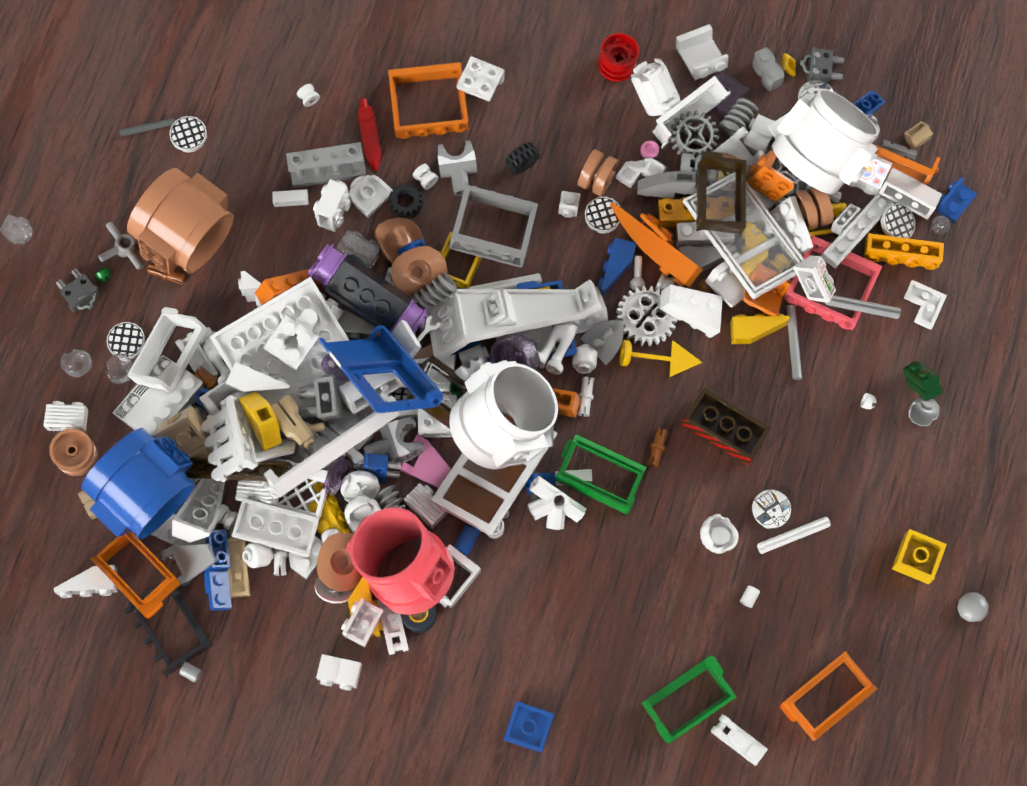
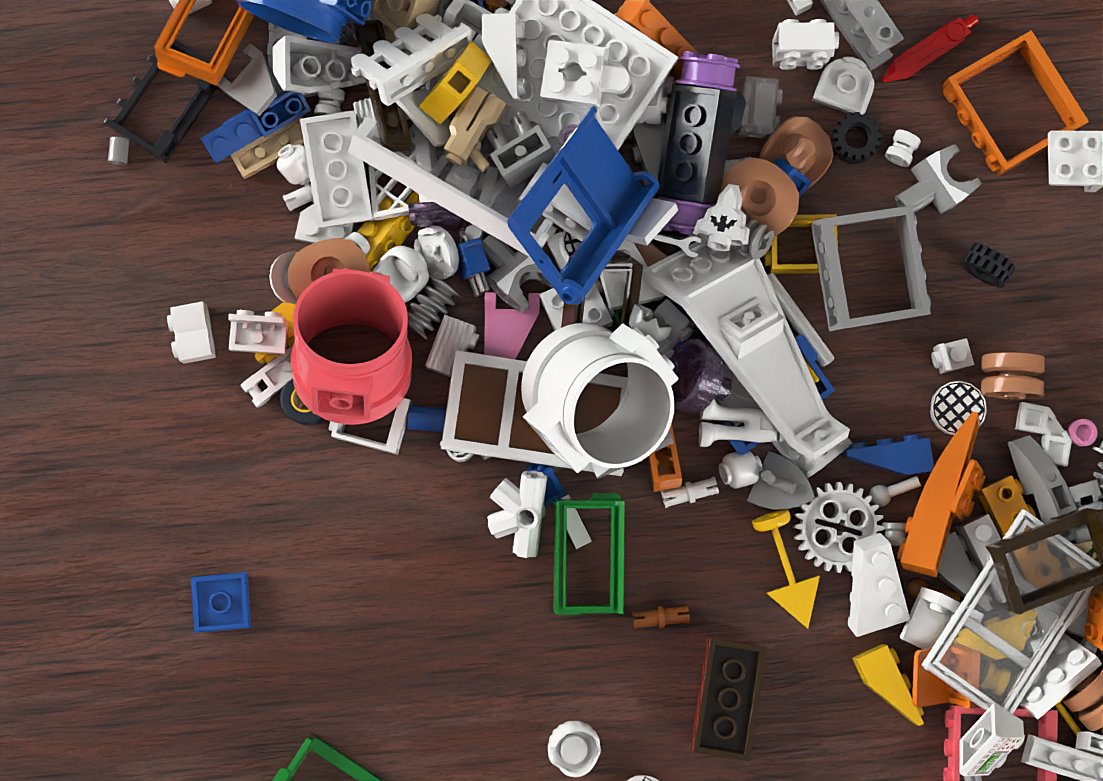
camera: 70 degrees right, 10 degrees up
(426, 296) = (724, 222): none -> white rock
(794, 343) = (891, 743): light grey piece -> none

